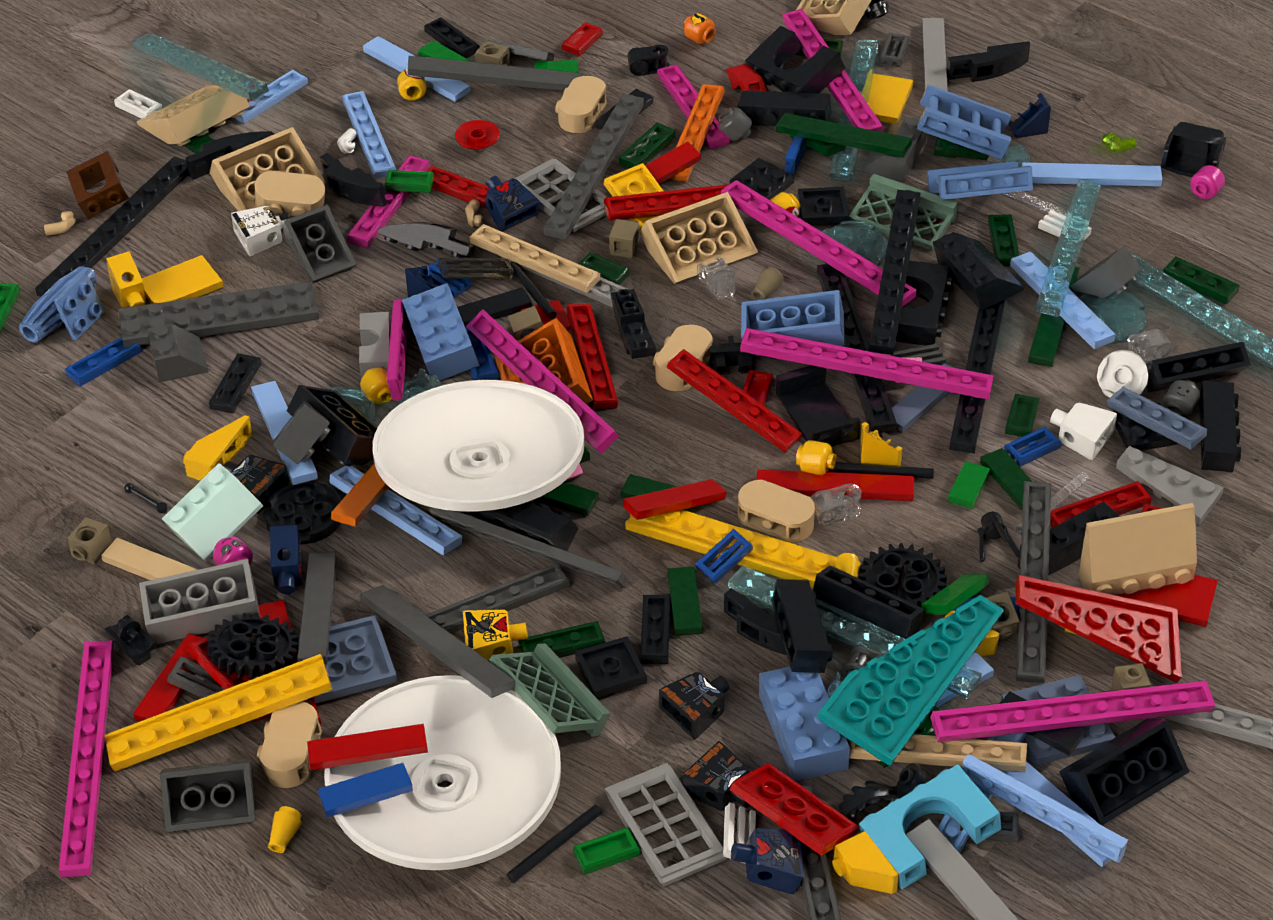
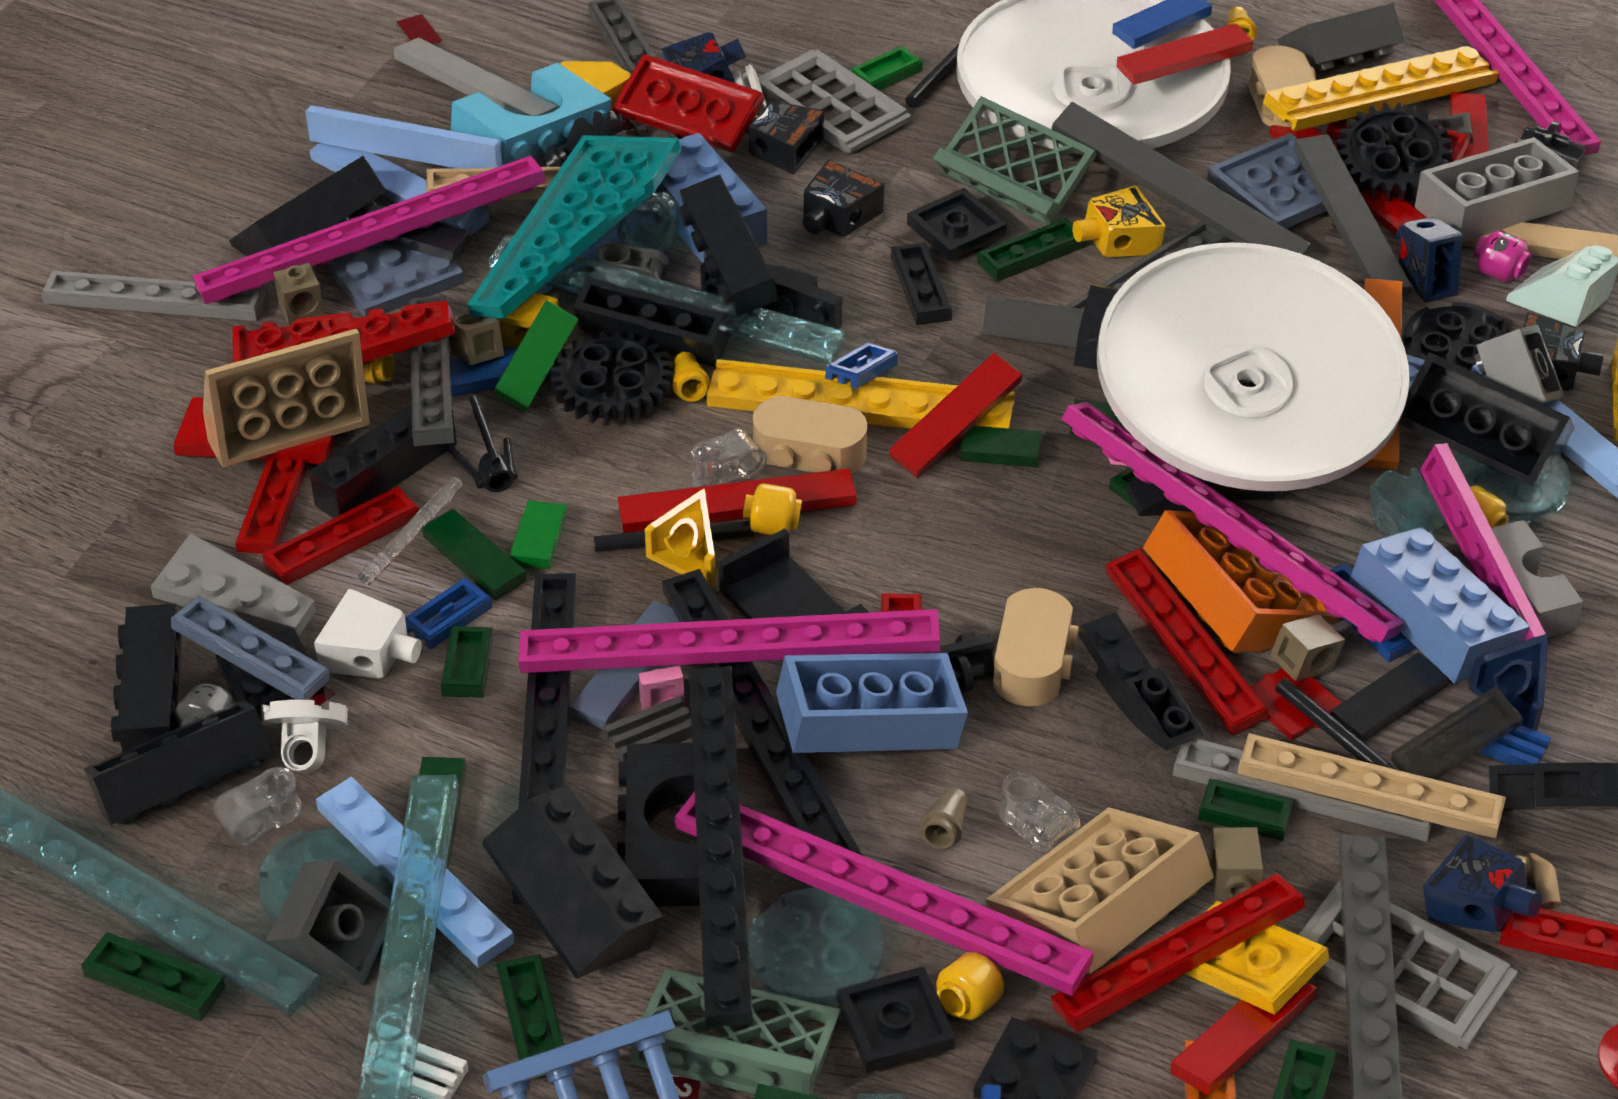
camera: 165 degrees right, 0 degrees up
(684, 601) = (896, 318): dark green tile -> none
(734, 400) = (927, 574): red tile -> none

